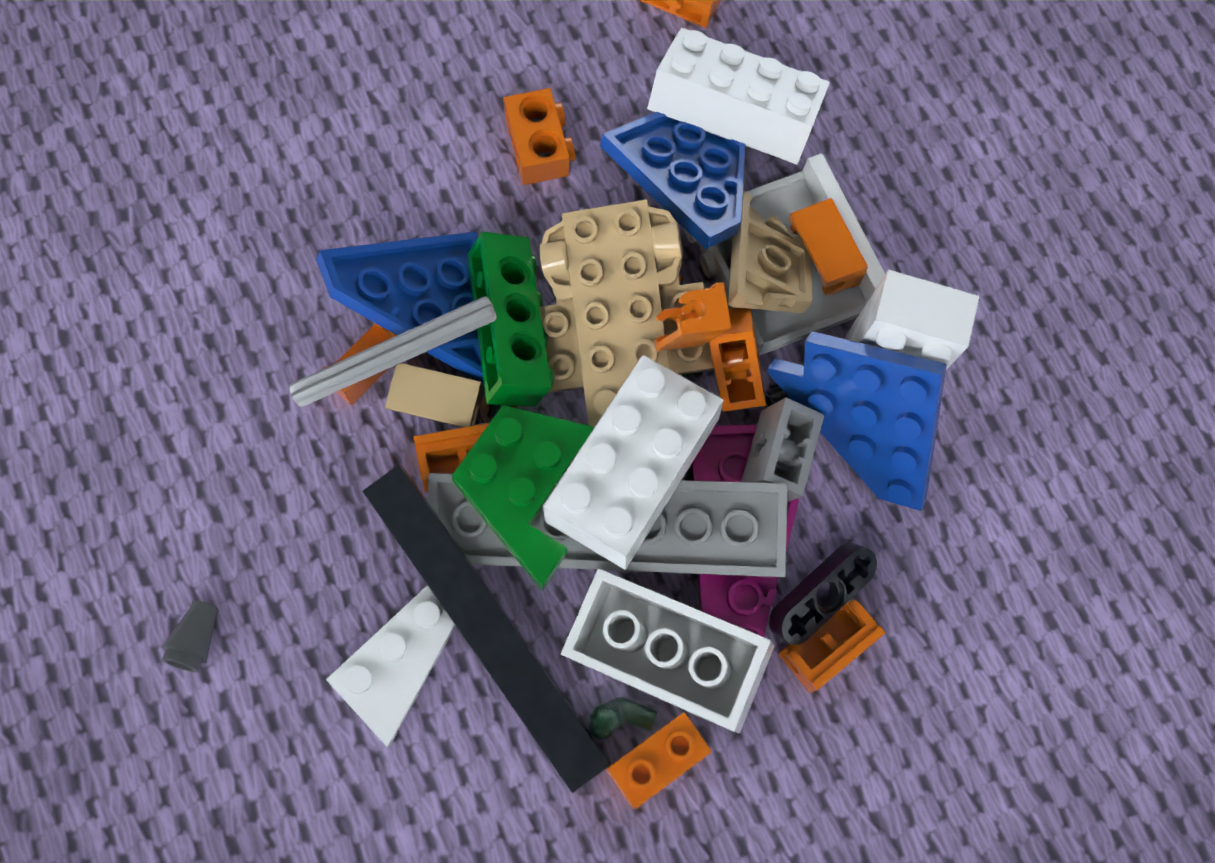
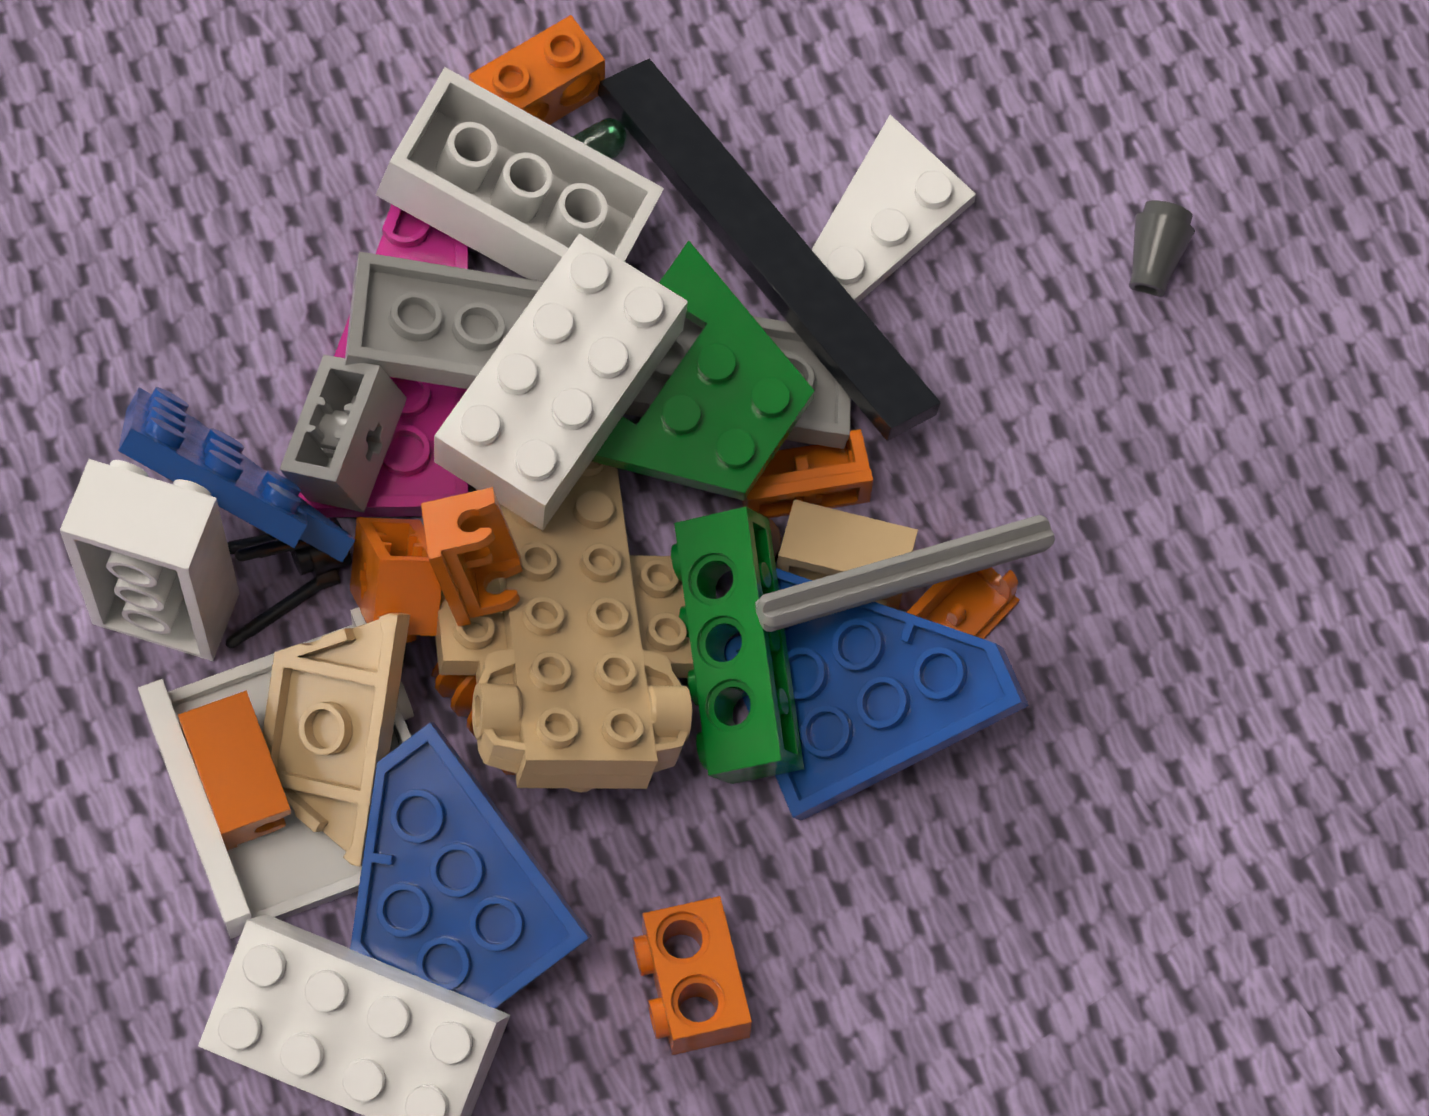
camera: 175 degrees left, 5 degrees down
(804, 595) = (293, 282): black beam -> none
(832, 646) = (290, 218): orange hinge -> none

